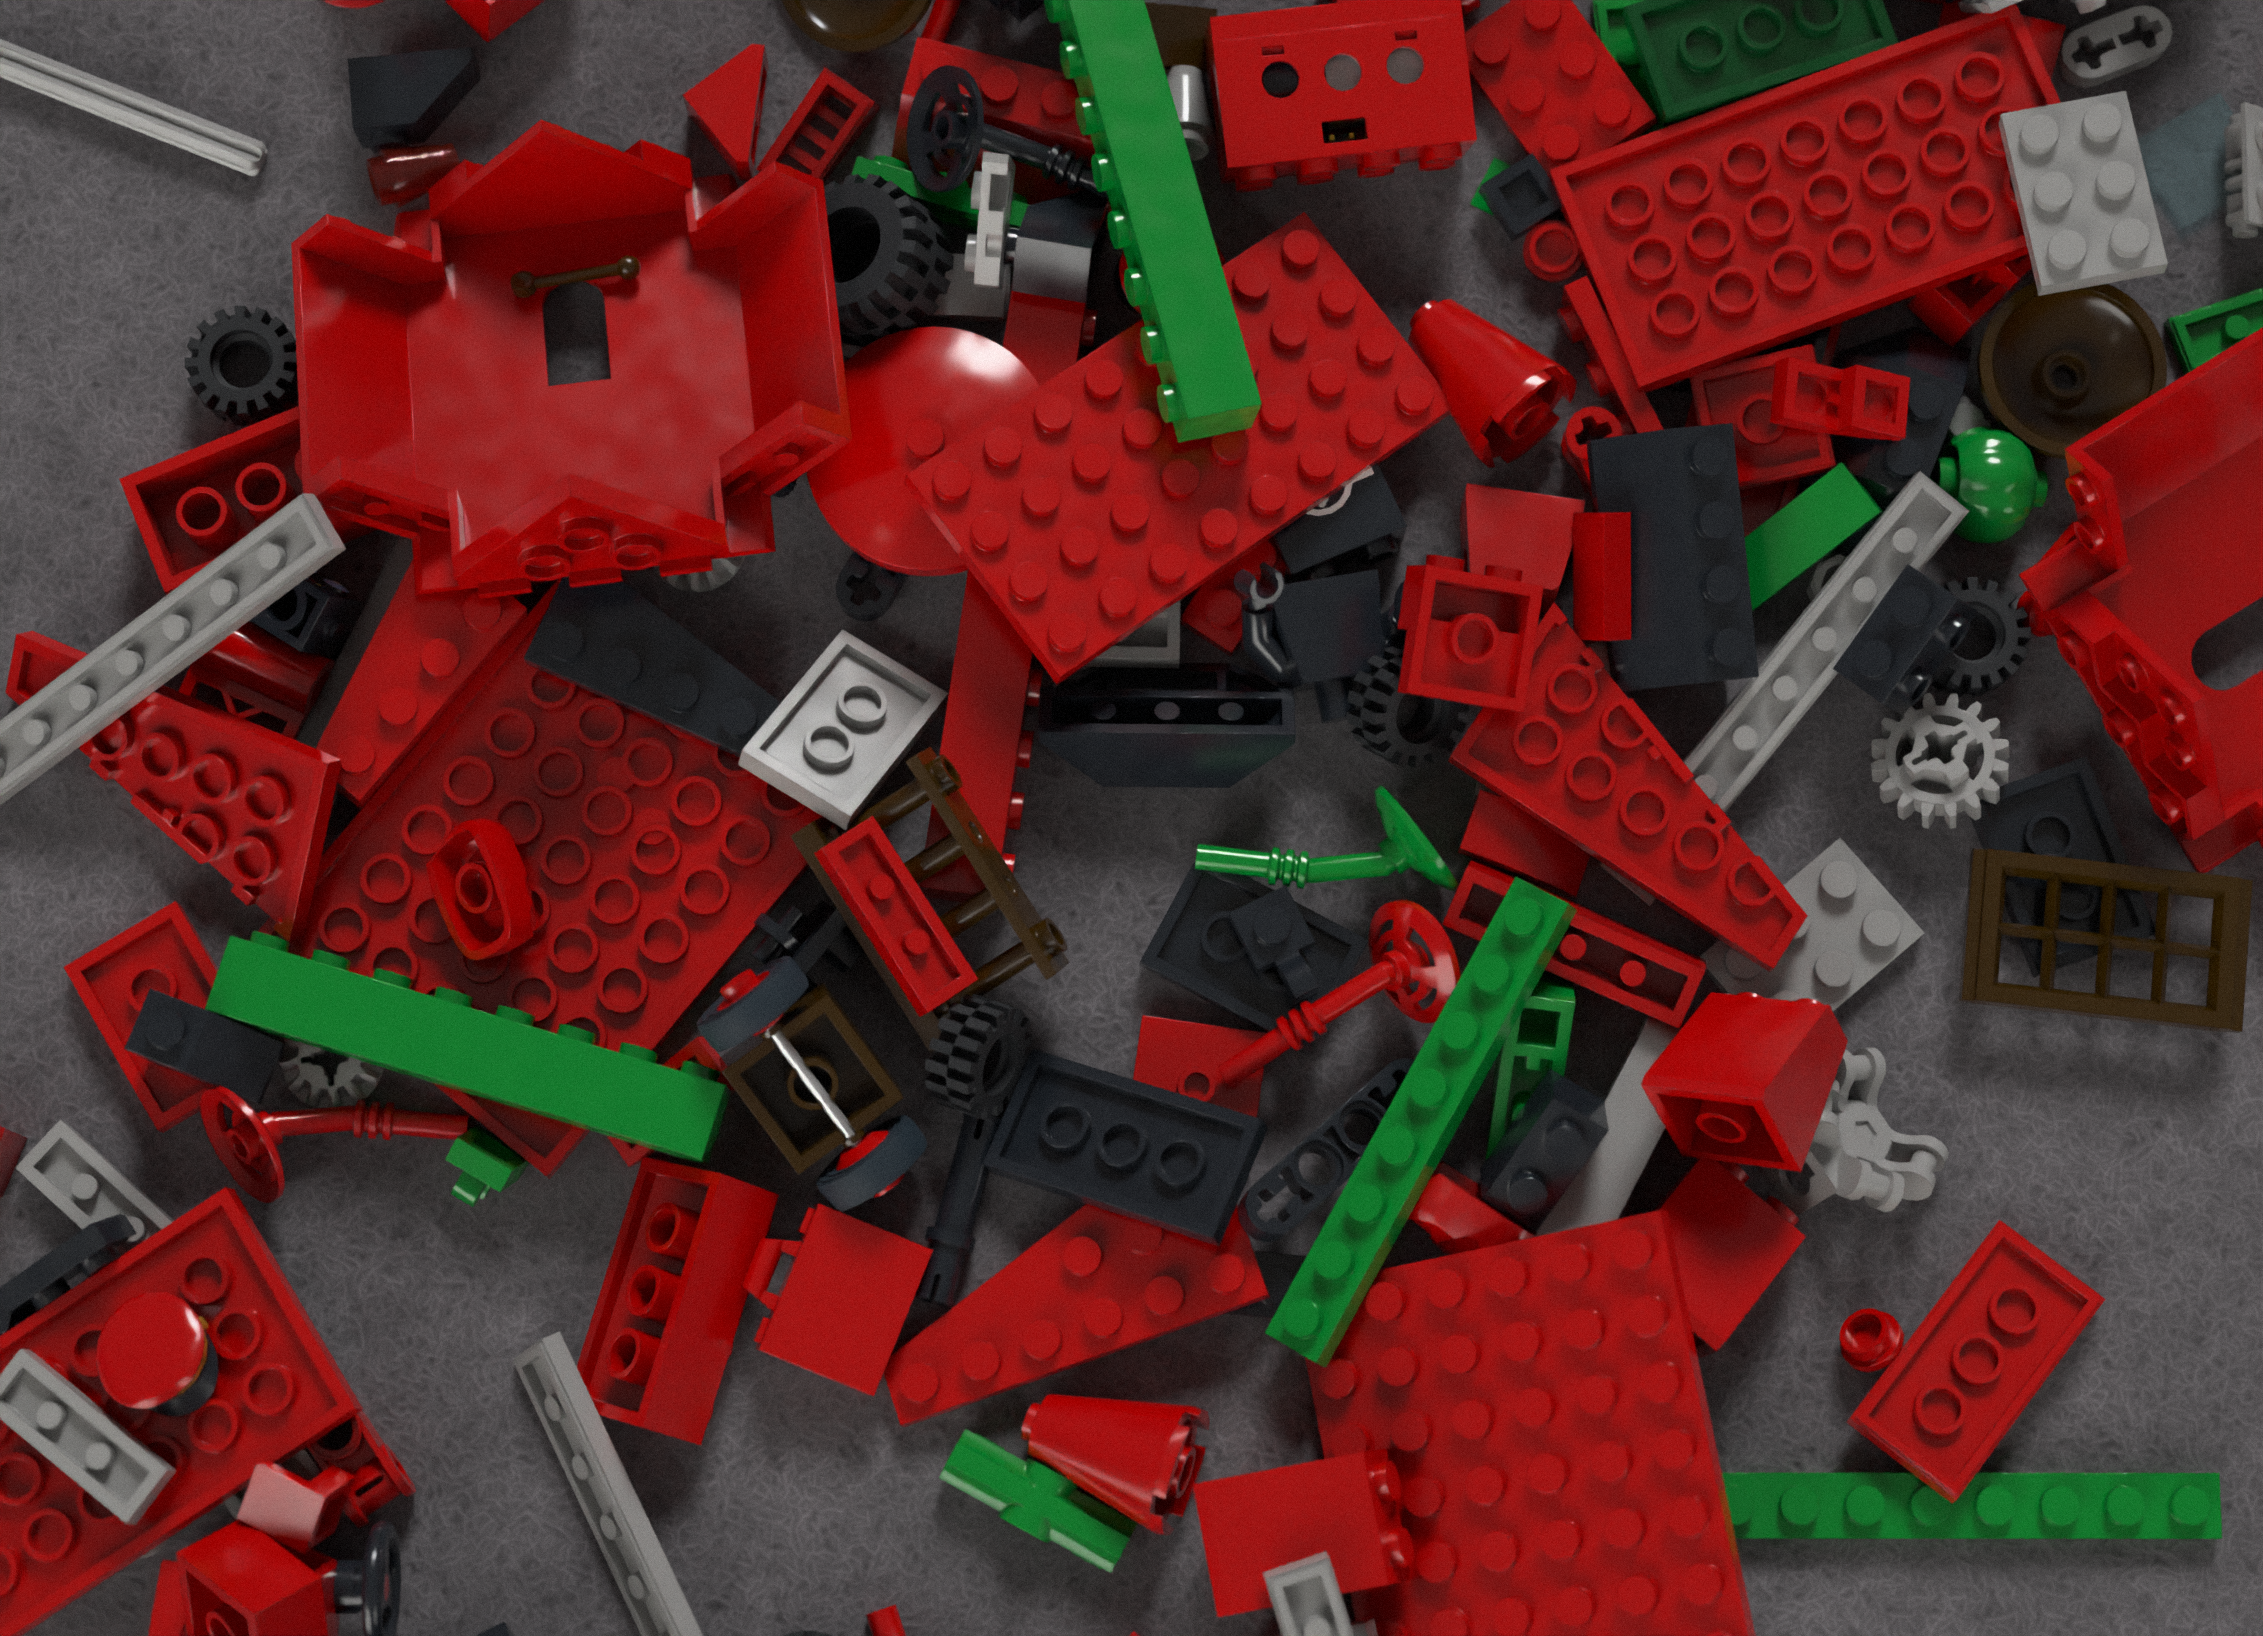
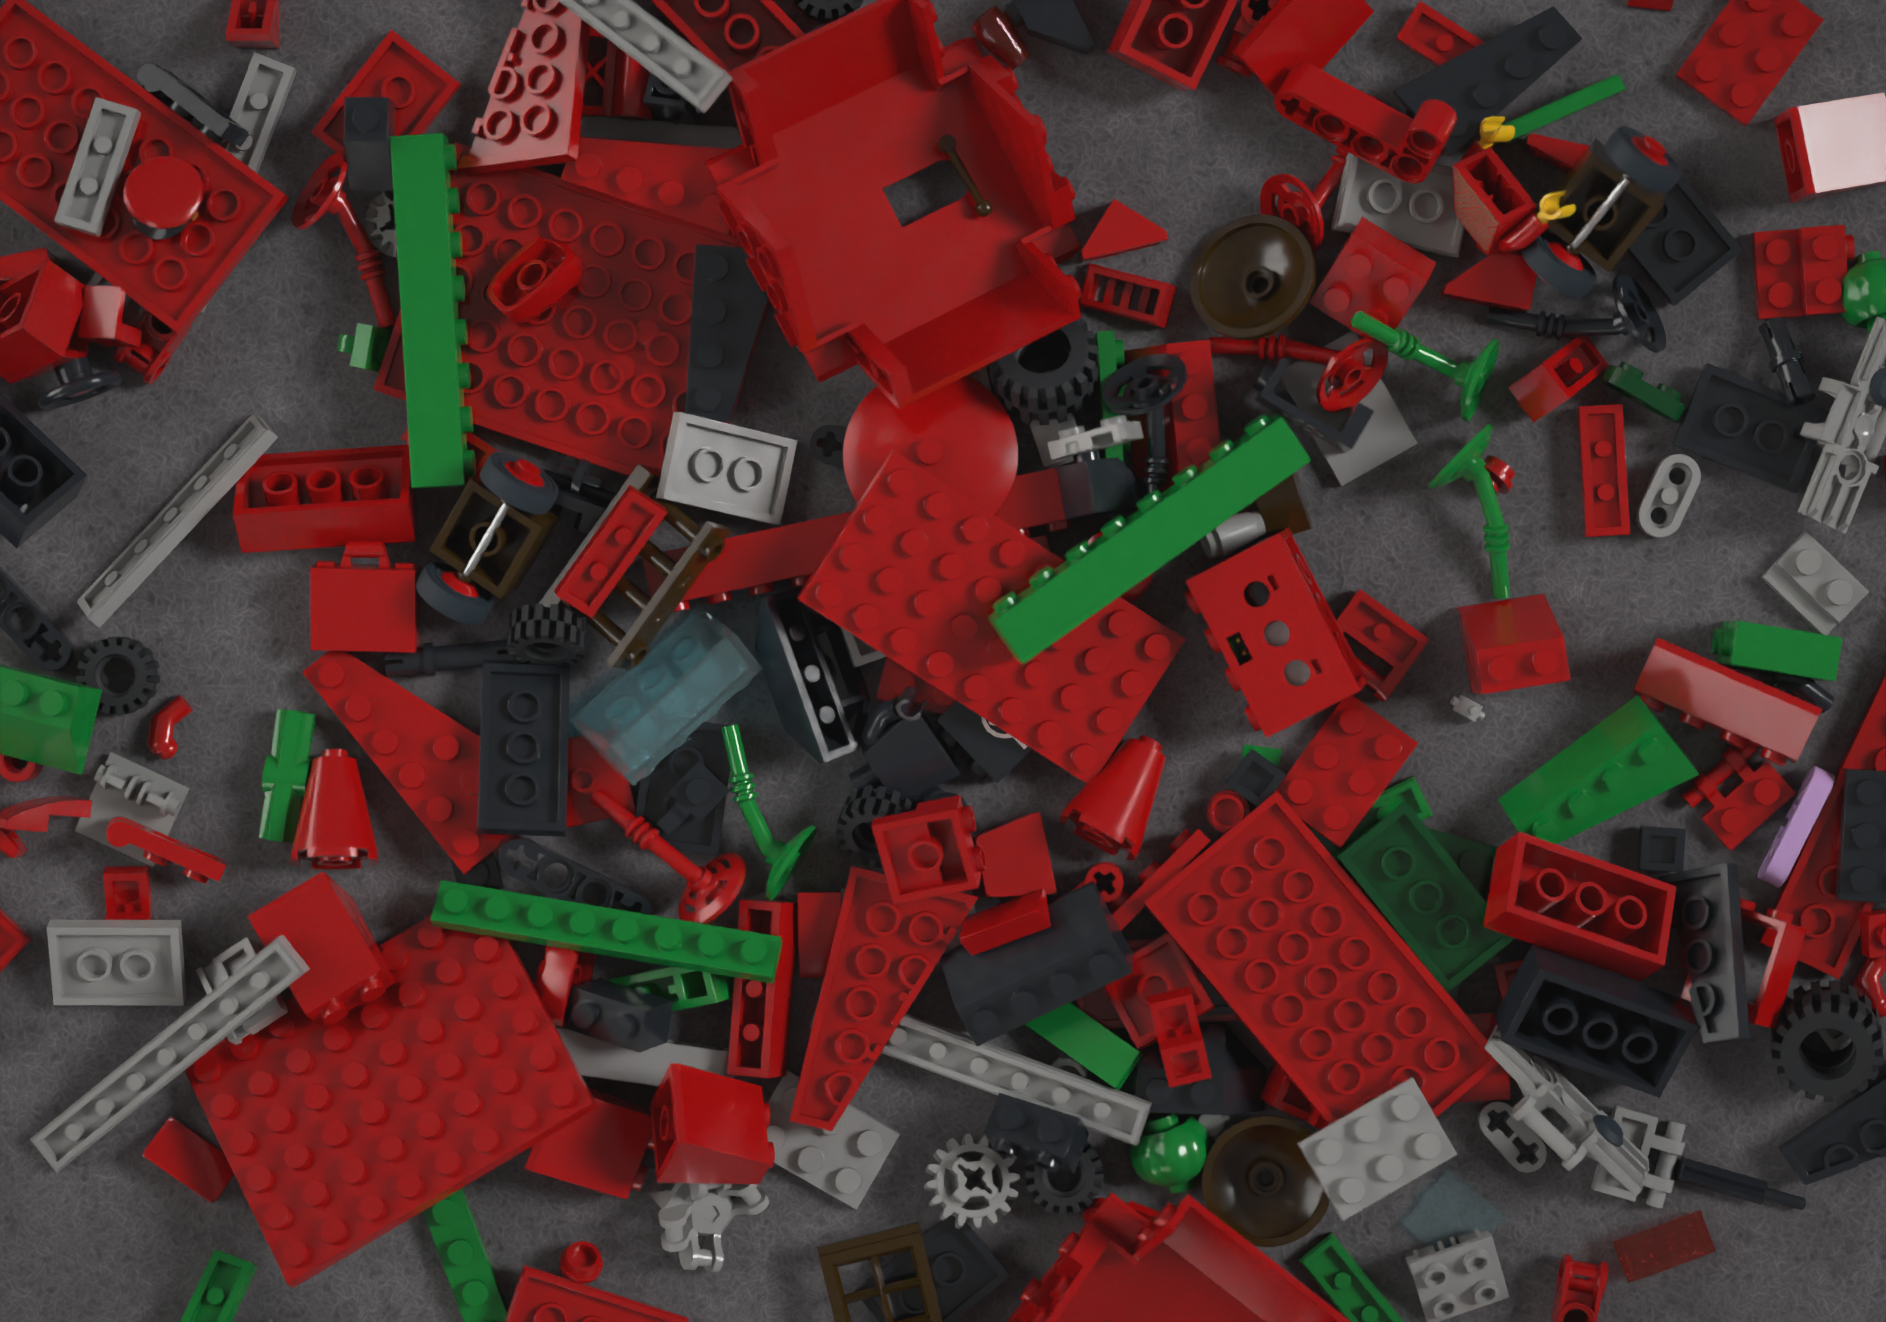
camera: 70 degrees right, 10 degrees up
(1125, 923) = (666, 695): none -> clear light blue slope

